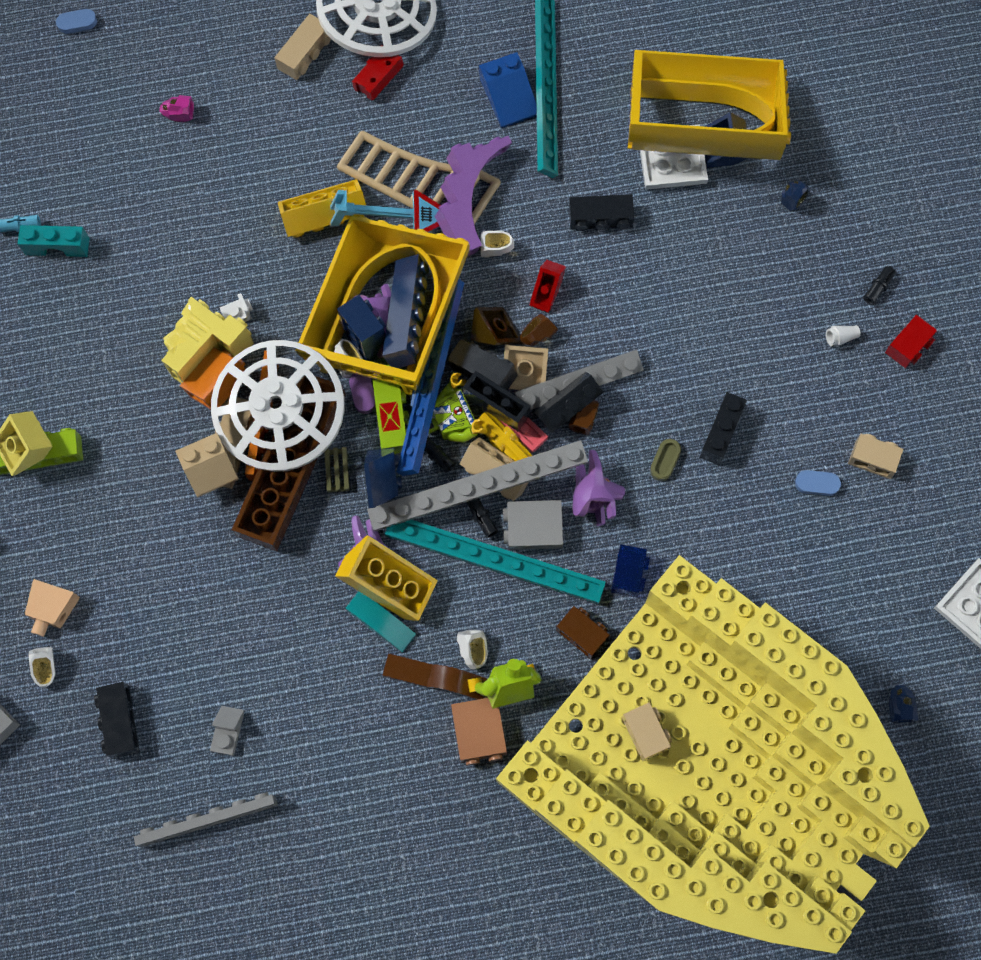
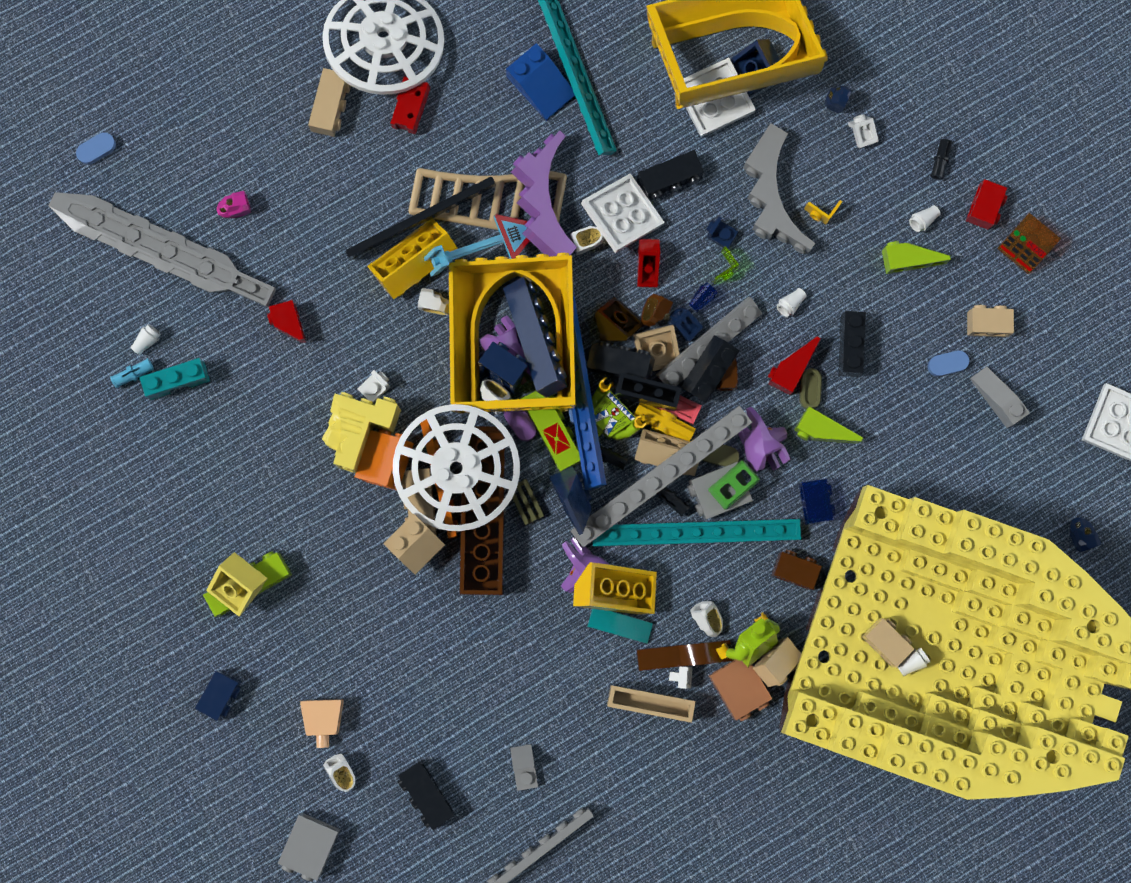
camera: 30 degrees left, 10 degrees up
(44, 197) = (145, 339): none -> white cone
(95, 124) = (157, 246): none -> light grey plate
(181, 223) = (286, 320): none -> red slope
(321, 251) = (433, 302): none -> white rock
(344, 172) = (420, 218): none -> black tile
(379, 710) = (651, 703): none -> tan brick
(424, 697) = (683, 677): none -> white tile
(526, 717) = (778, 663): none -> tan brick
(539, 230) = (622, 213): none -> white plate
(547, 490) = (723, 456): none -> olive tile
(552, 527) = (730, 478): none -> bright green piece
(562, 354) = (685, 323): none -> dark blue bracket
(589, 335) = (703, 296): none -> clear blue cone
(623, 320) = (727, 274): none -> clear neon green bracket
(630, 282) = (721, 233): none -> dark blue bracket
(653, 431) = (789, 371): none -> red slope
(662, 501) = (821, 428): none -> lime slope
(667, 762) = (915, 661): none -> white cone
(674, 370) = (790, 303): none -> white cone
(687, 283) = (765, 195): none -> light grey arch
(736, 297) = (819, 215): none -> yellow bracket
(810, 233) = (864, 130): none -> white bracket
(811, 365) = (910, 257): none -> lime slope
(860, 534) = (999, 397): none -> light grey slope
(942, 392) = (1028, 243): none -> clear orange slope

